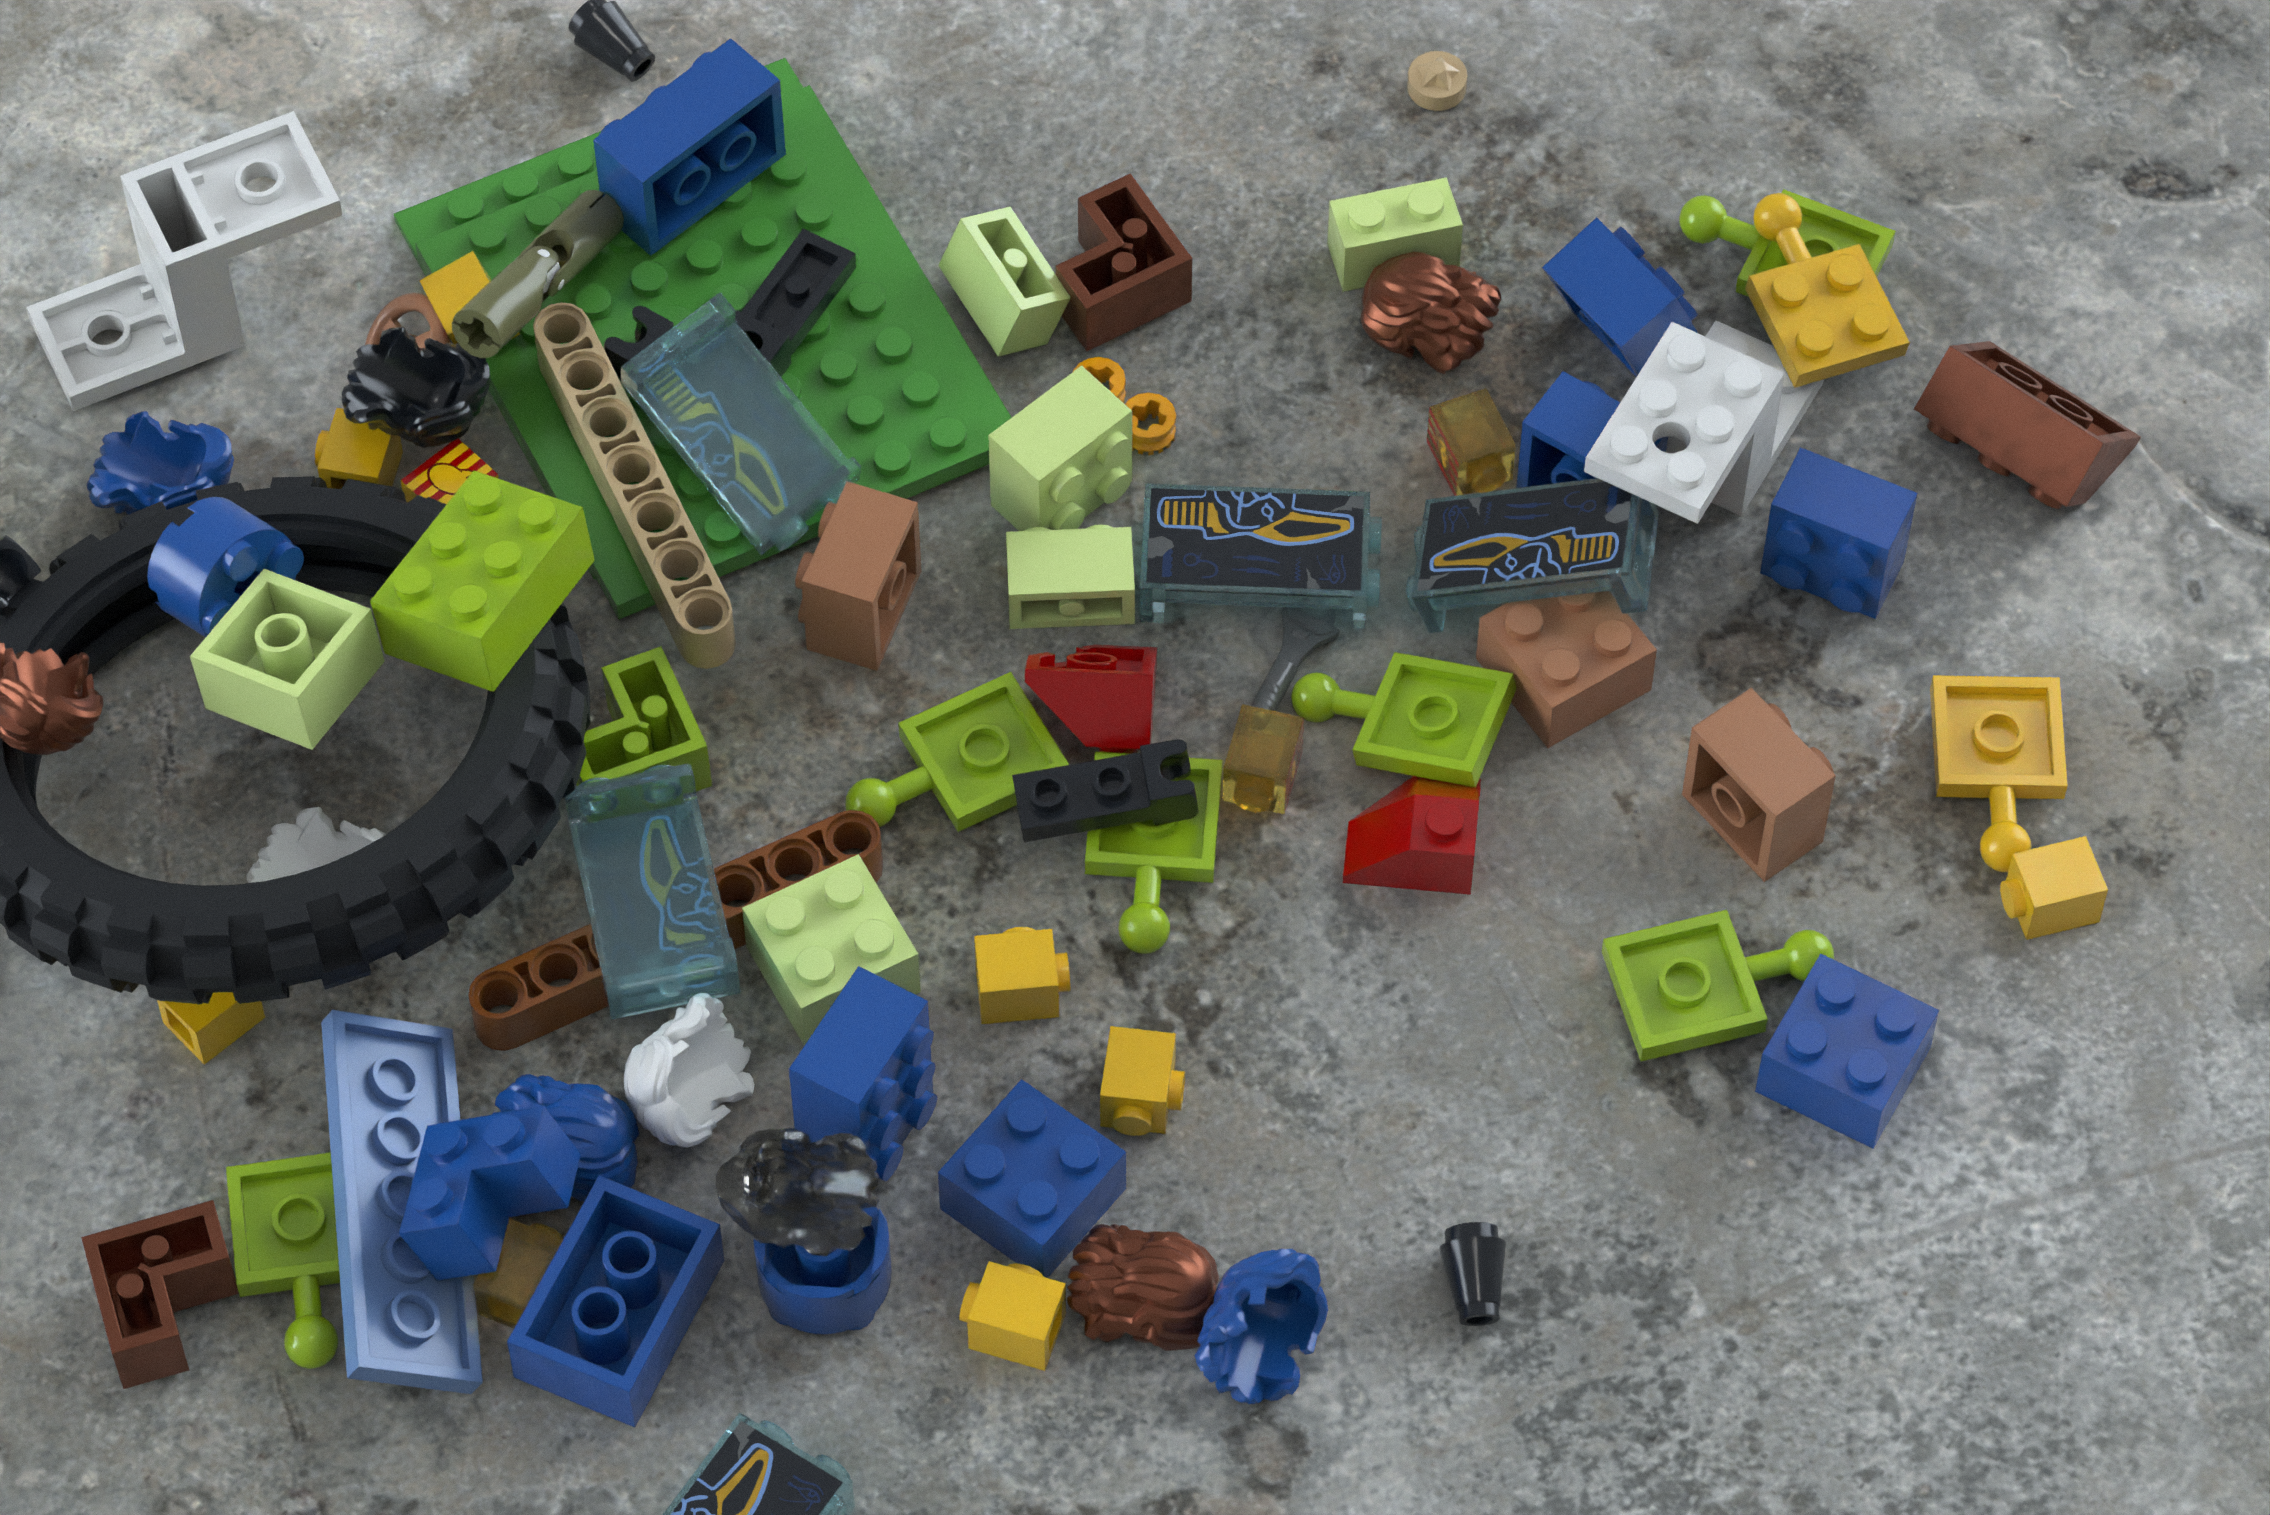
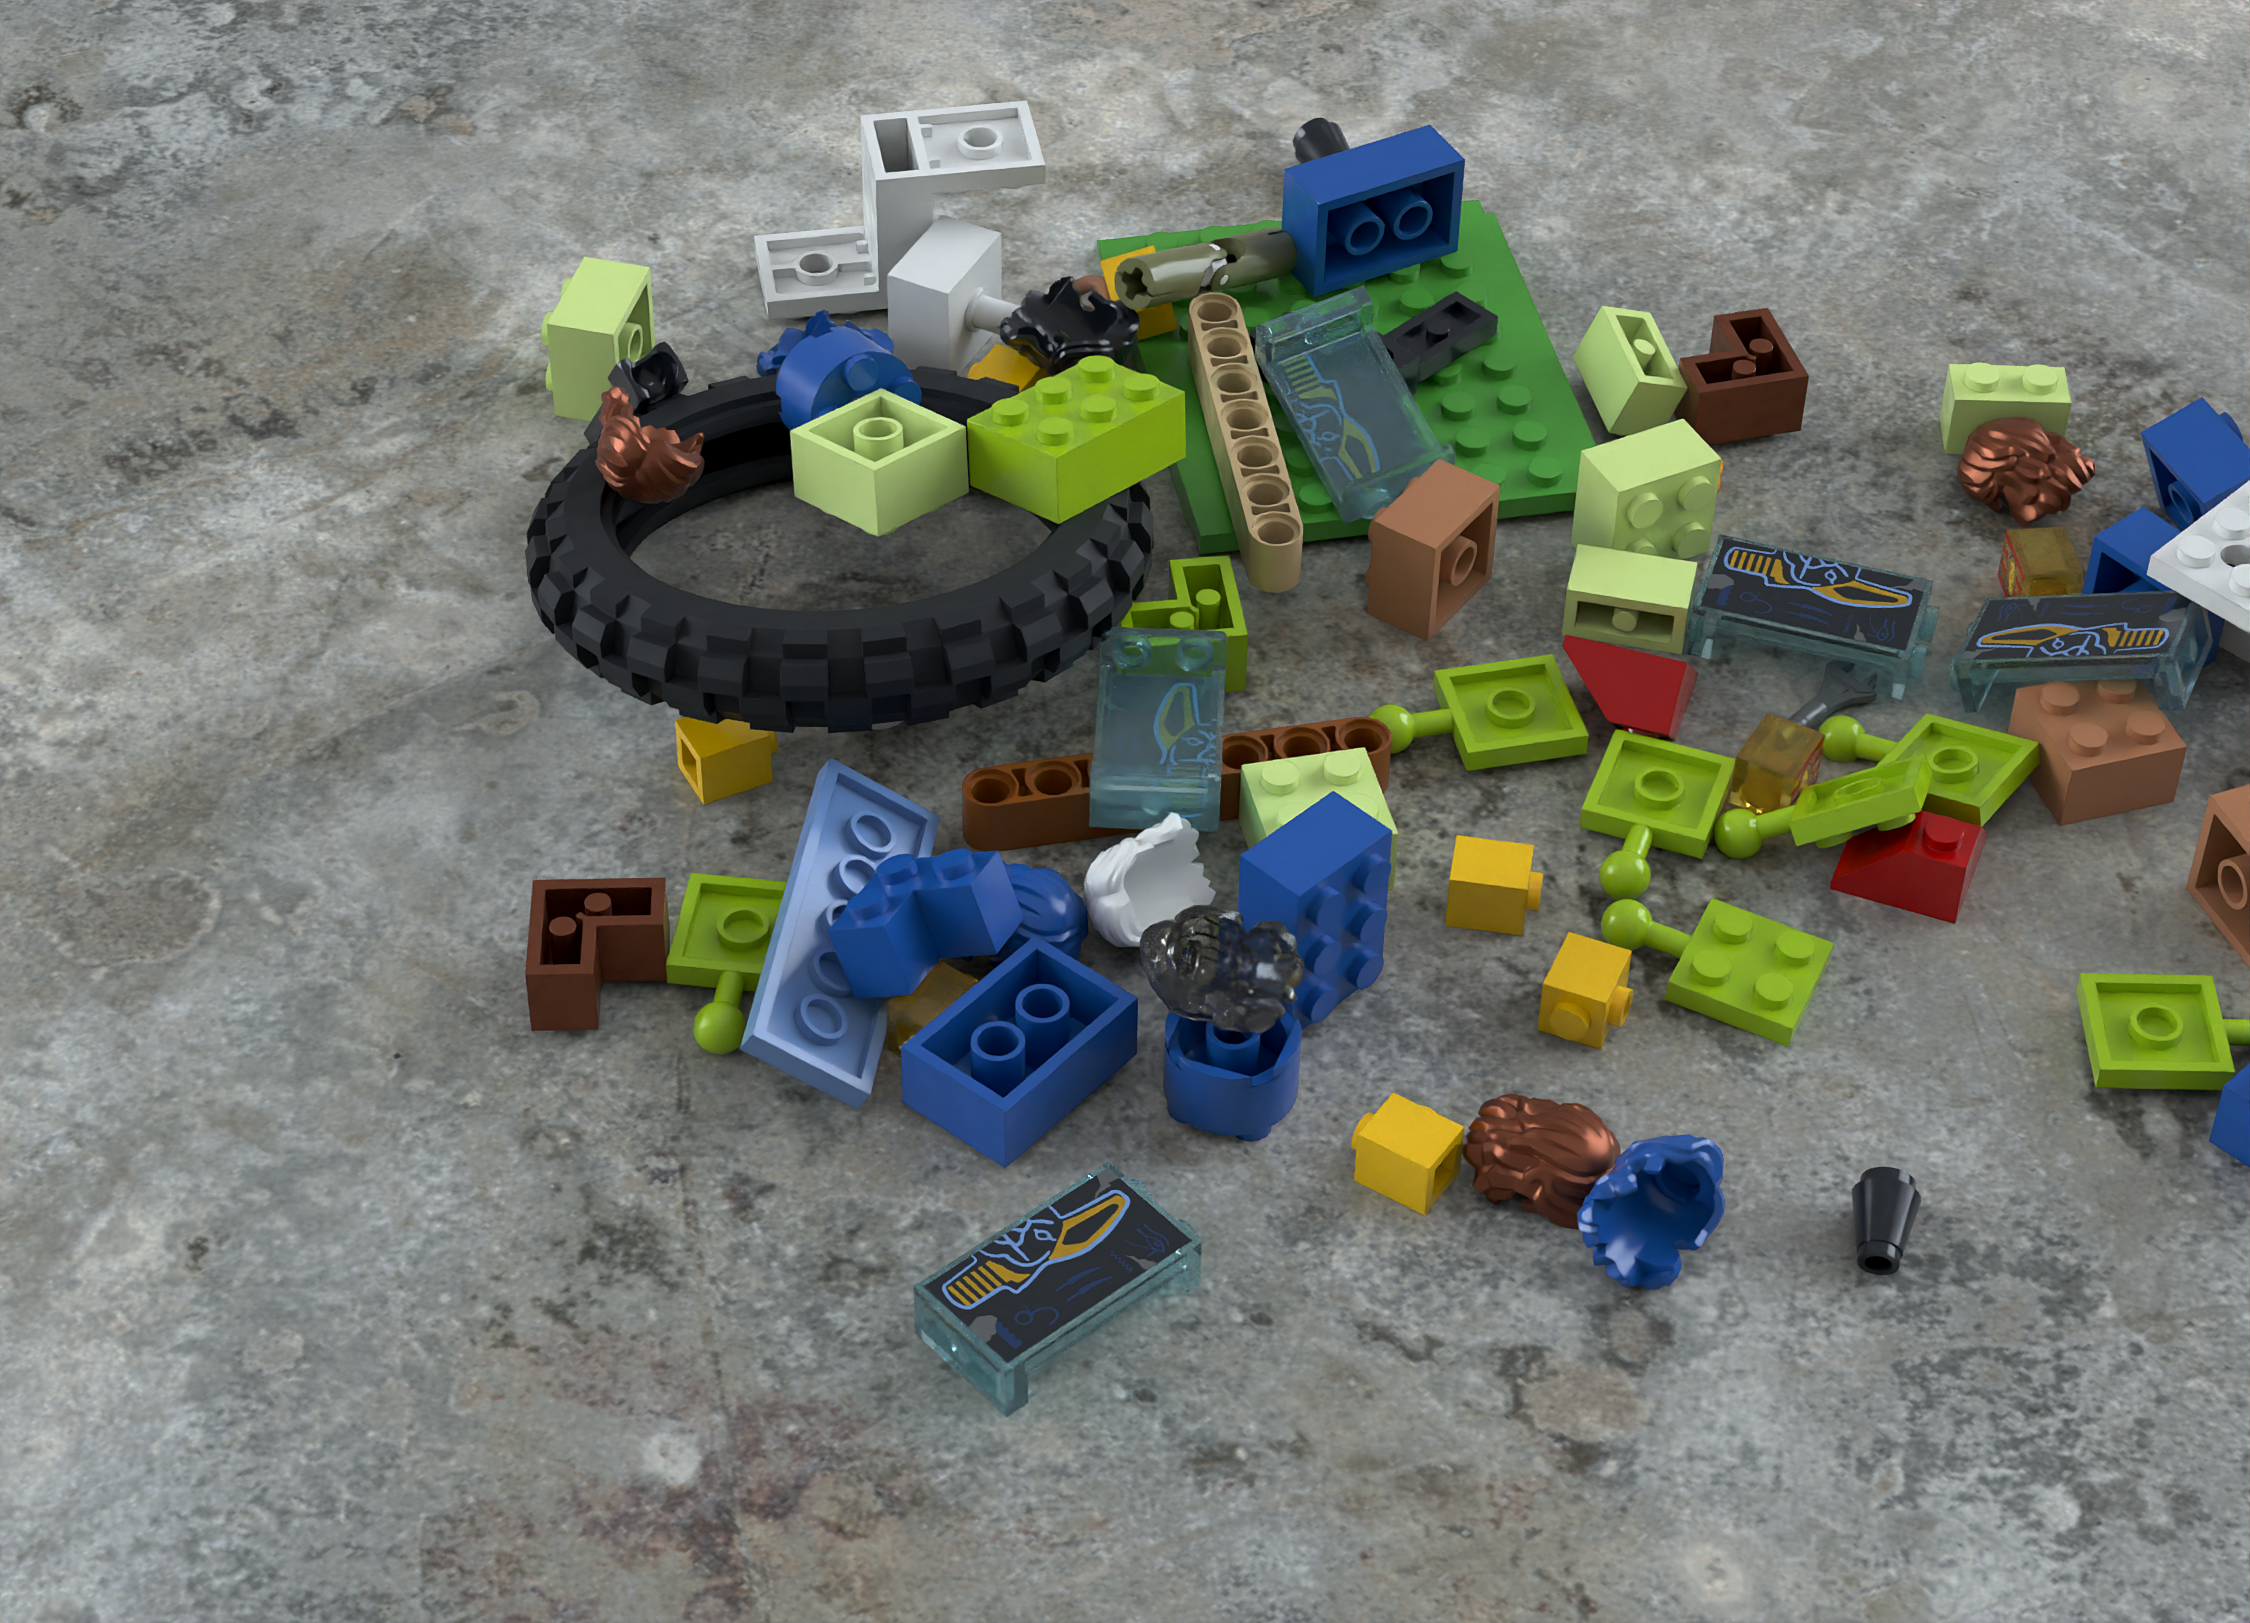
camera: 15 degrees right, 15 degrees down
(269, 359) = (947, 296): none -> white brick
(1032, 1179) = (1456, 1040): blue brick -> none
(1107, 792) = (1620, 754): black plate -> none
(1158, 434) = (1737, 507): light orange bush -> none
(1279, 1011) = (1732, 965): none -> lime plate
(1336, 803) = (1833, 809): none -> lime plate
(1437, 80) = (2072, 319): tan tile -> none

